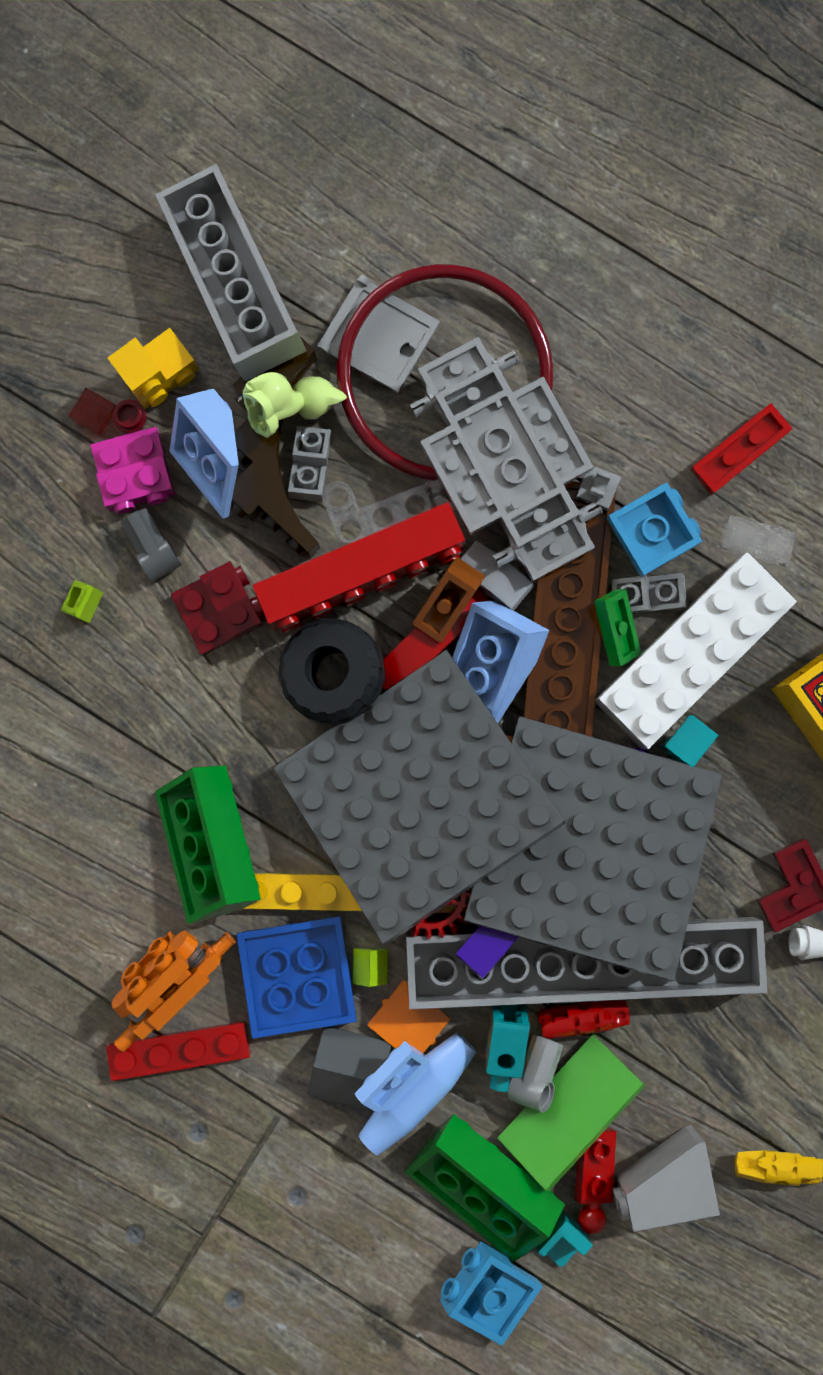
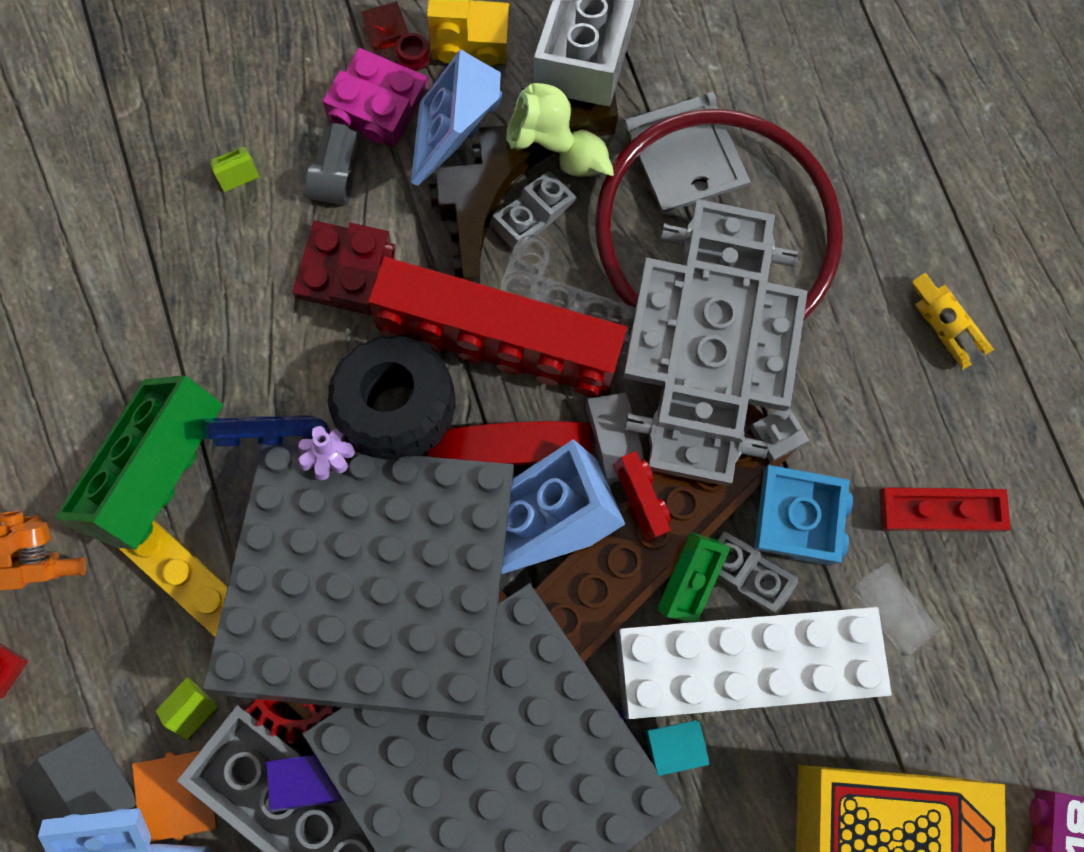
camera: 30 degrees right, 10 degrees down
(268, 758) = (267, 429): none -> clear blue plate
(296, 977) = (108, 659): blue plate -> none
(322, 742) = (325, 452): none -> lavender plant
(448, 599) = (554, 419): dark orange slope -> none
(558, 608) = (636, 482): none -> red plate
(631, 304) = (939, 301): none -> yellow hinge

